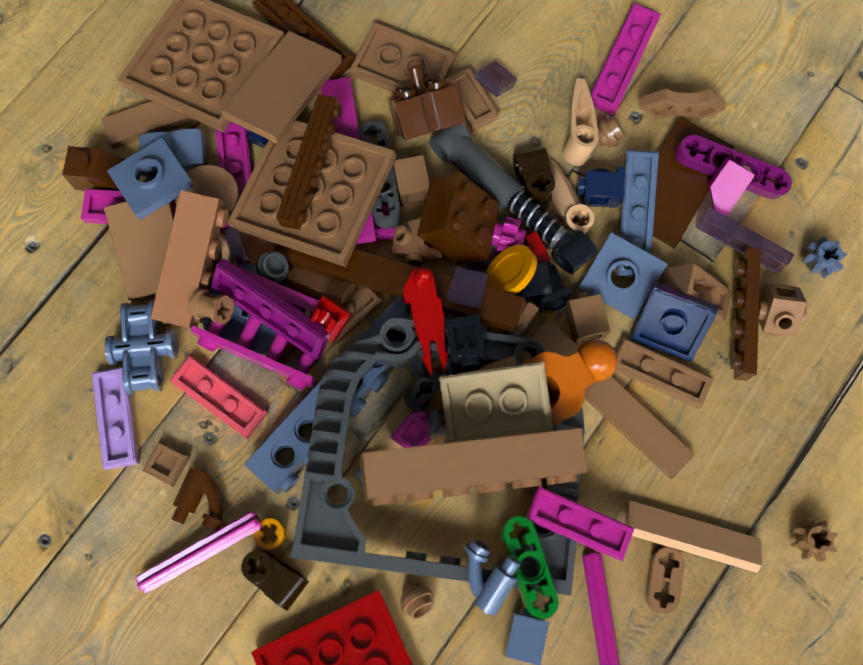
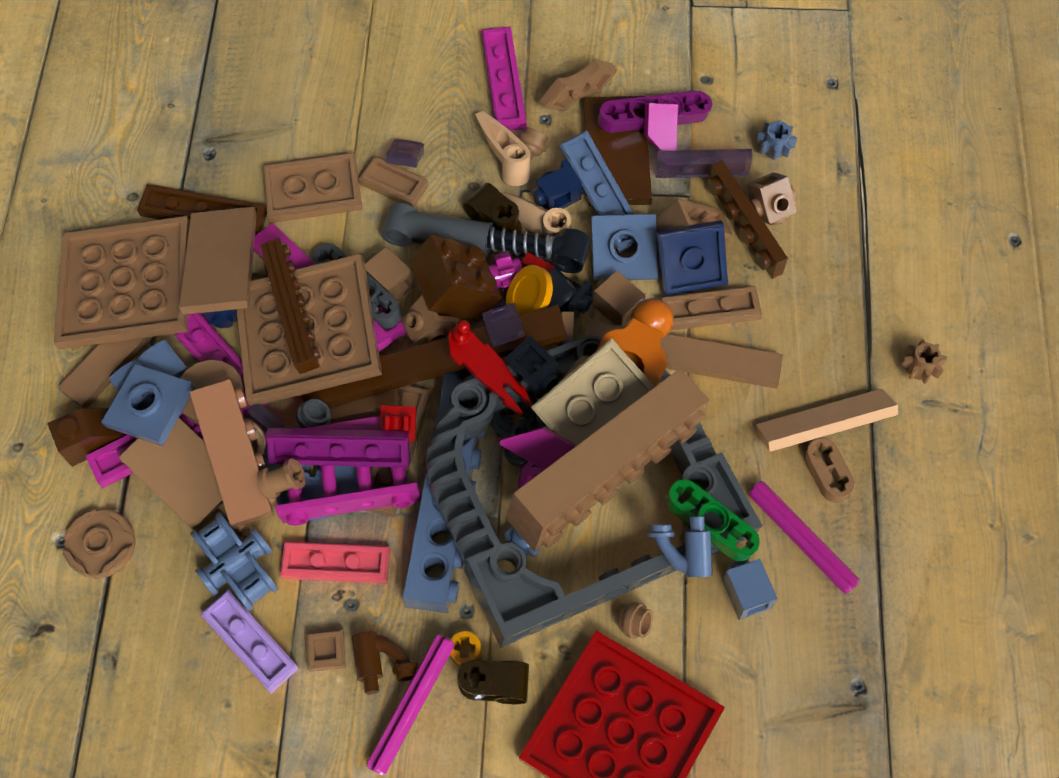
camera: 30 degrees left, 10 degrees down
(55, 266) = (99, 543): none -> medium nougat tile
(424, 416) = (538, 446): none -> dark pink tile
(425, 107) = (361, 205): reddish brown brick -> none
(579, 523) = (729, 460): dark pink tile -> none

